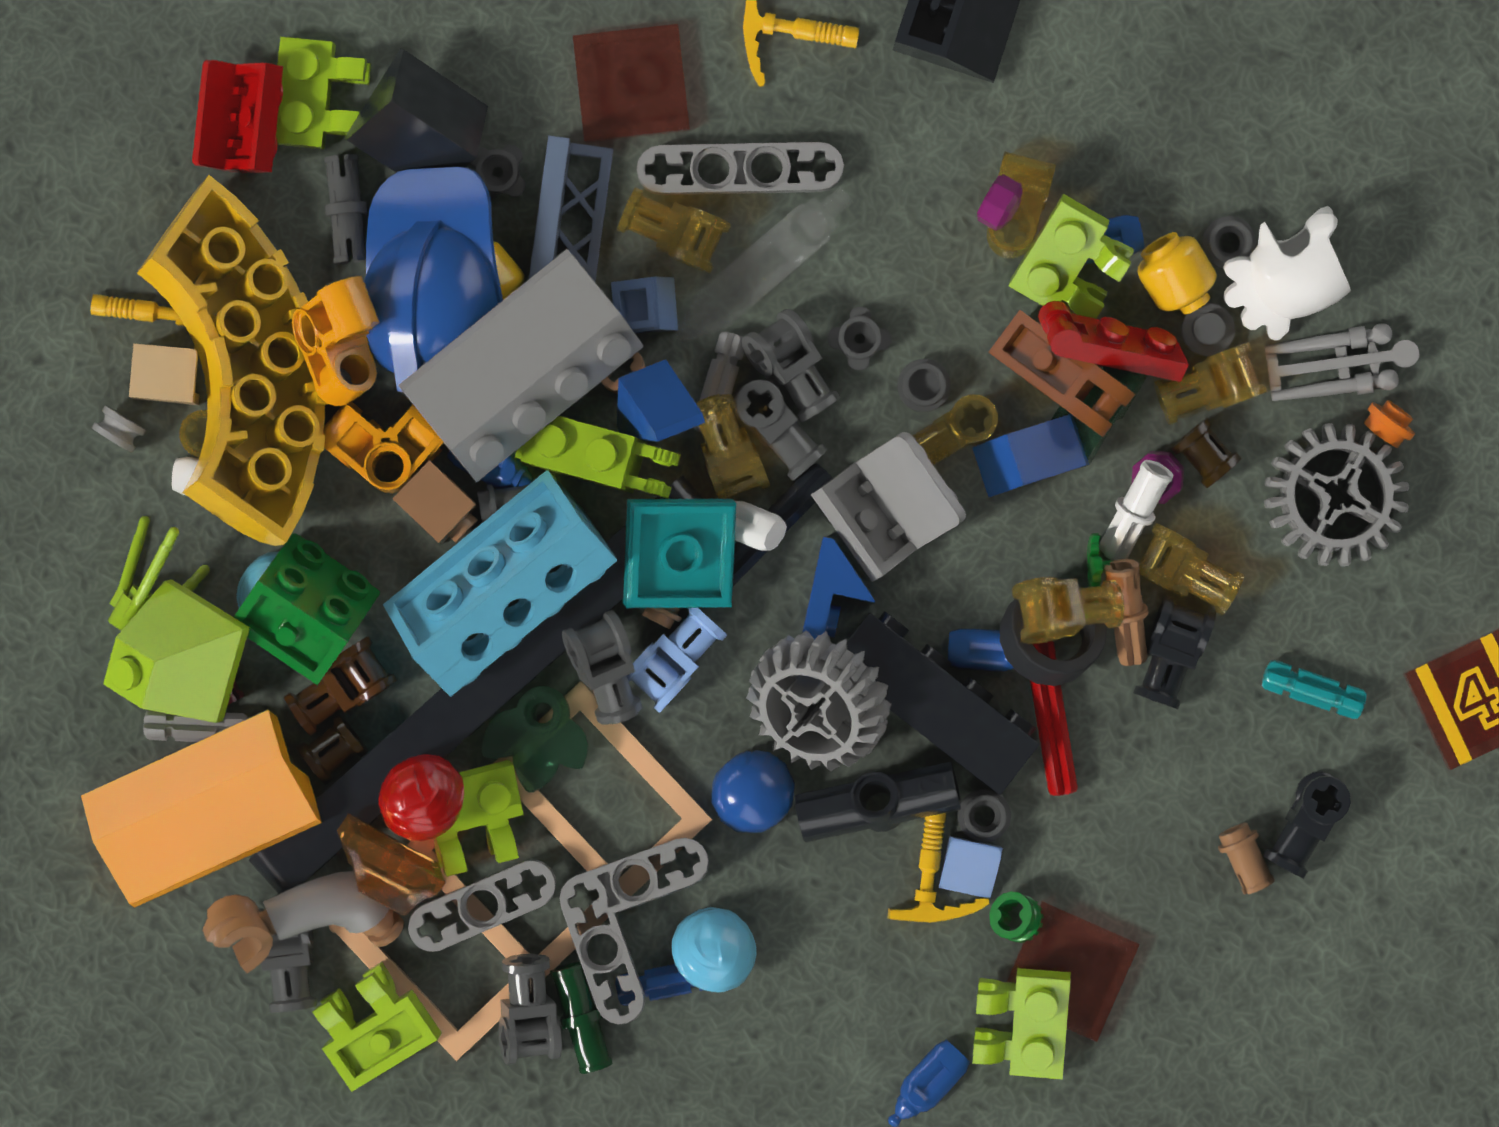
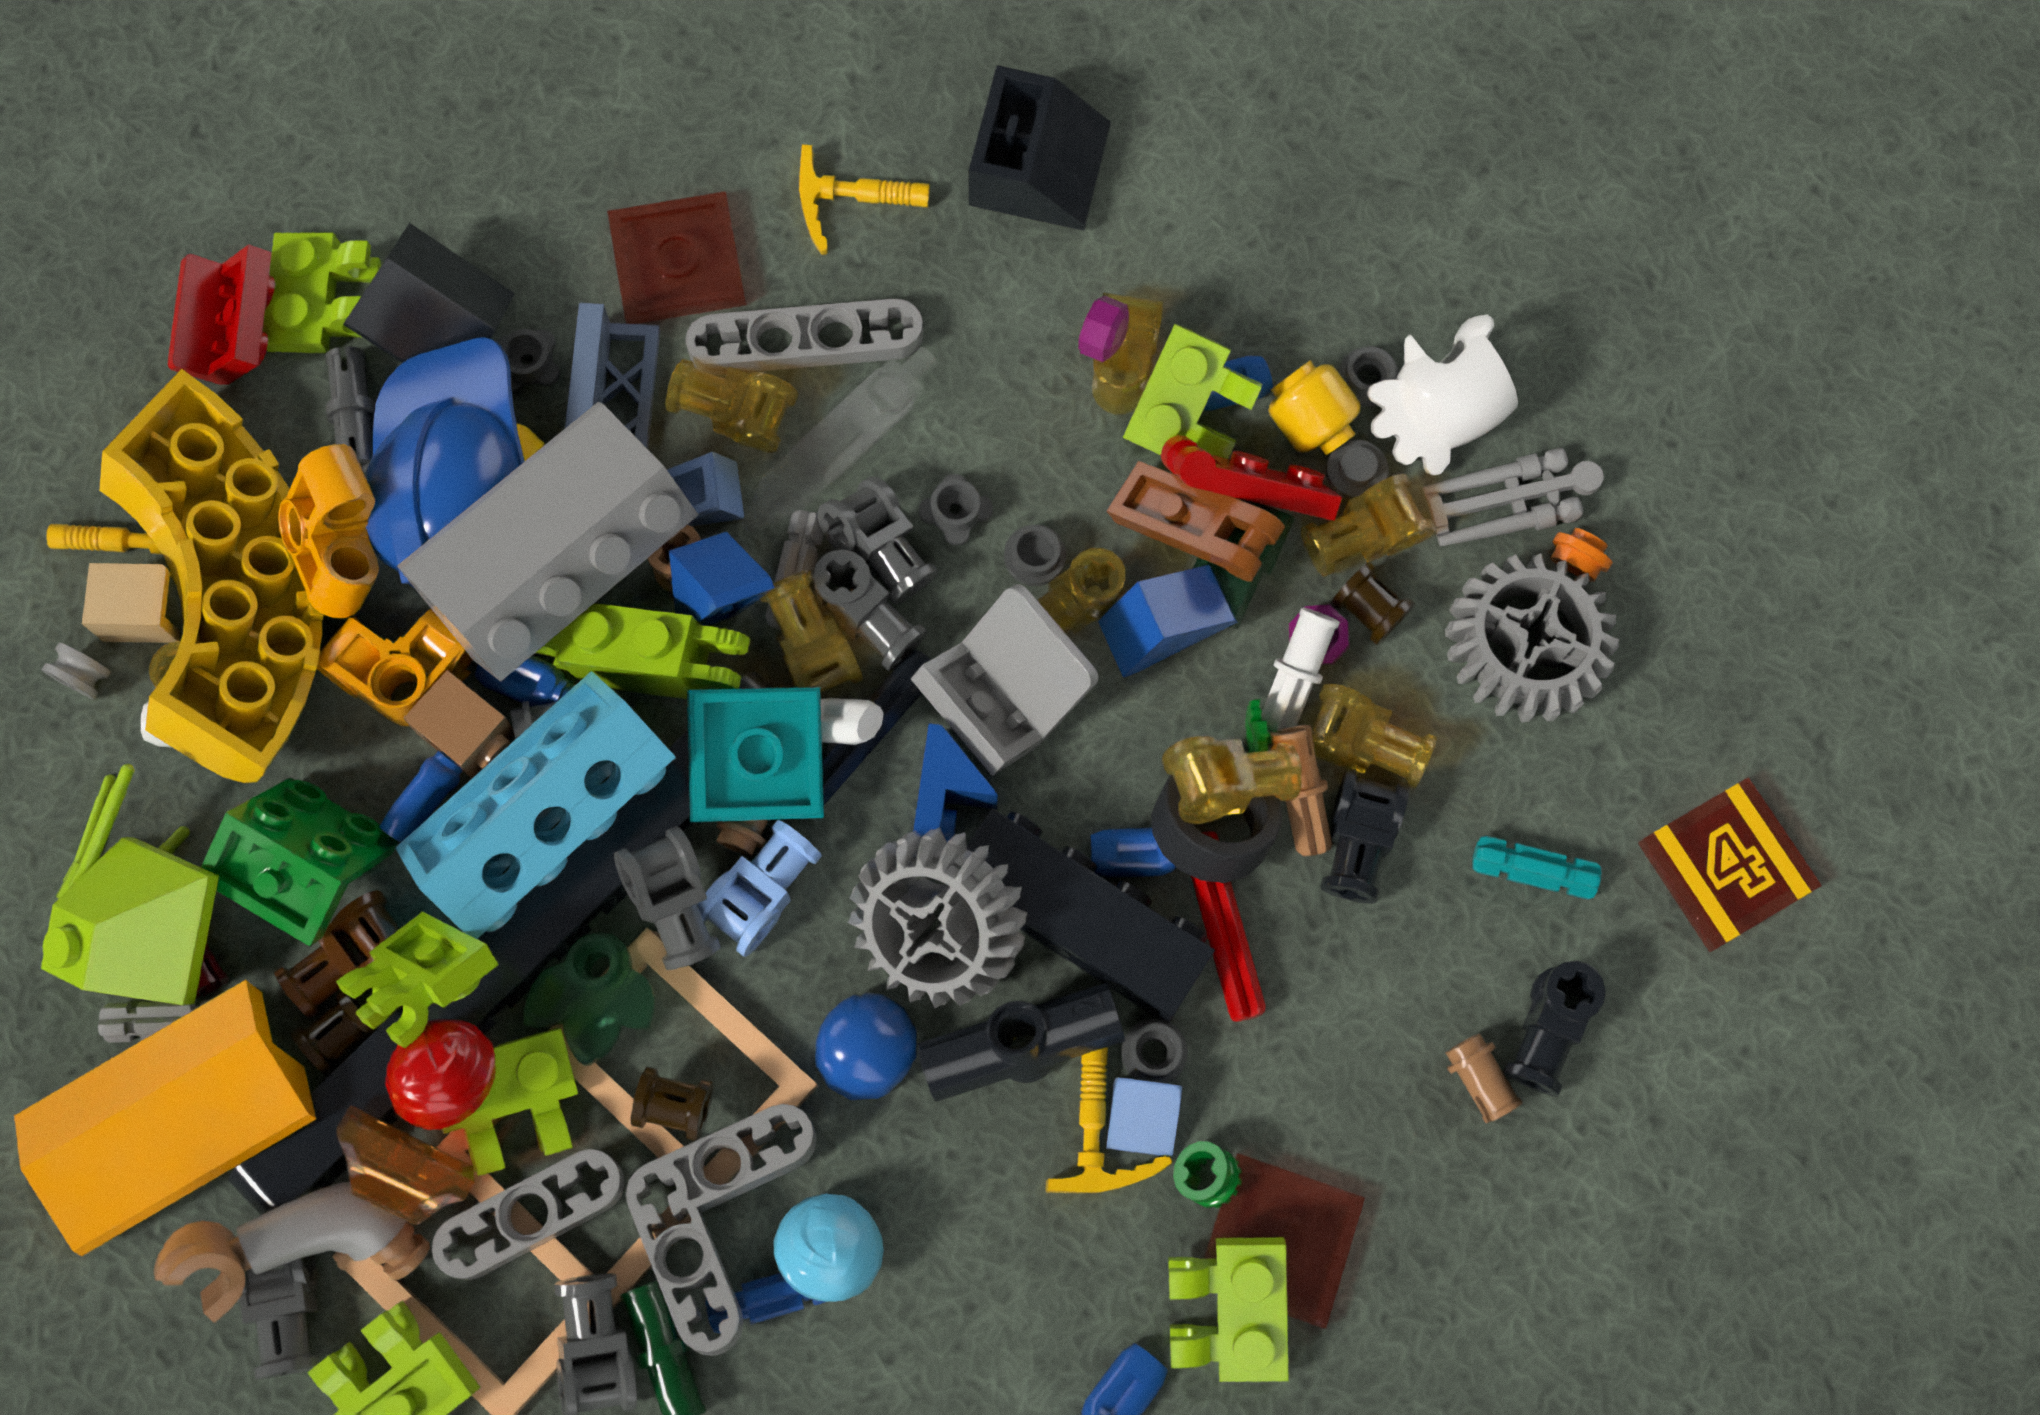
camera: 10 degrees left, 15 degrees down
(412, 548) = (422, 796): none -> blue piece
(418, 709) = (414, 969): none -> lime plate
(609, 830) = (671, 1103): none -> dark brown bush

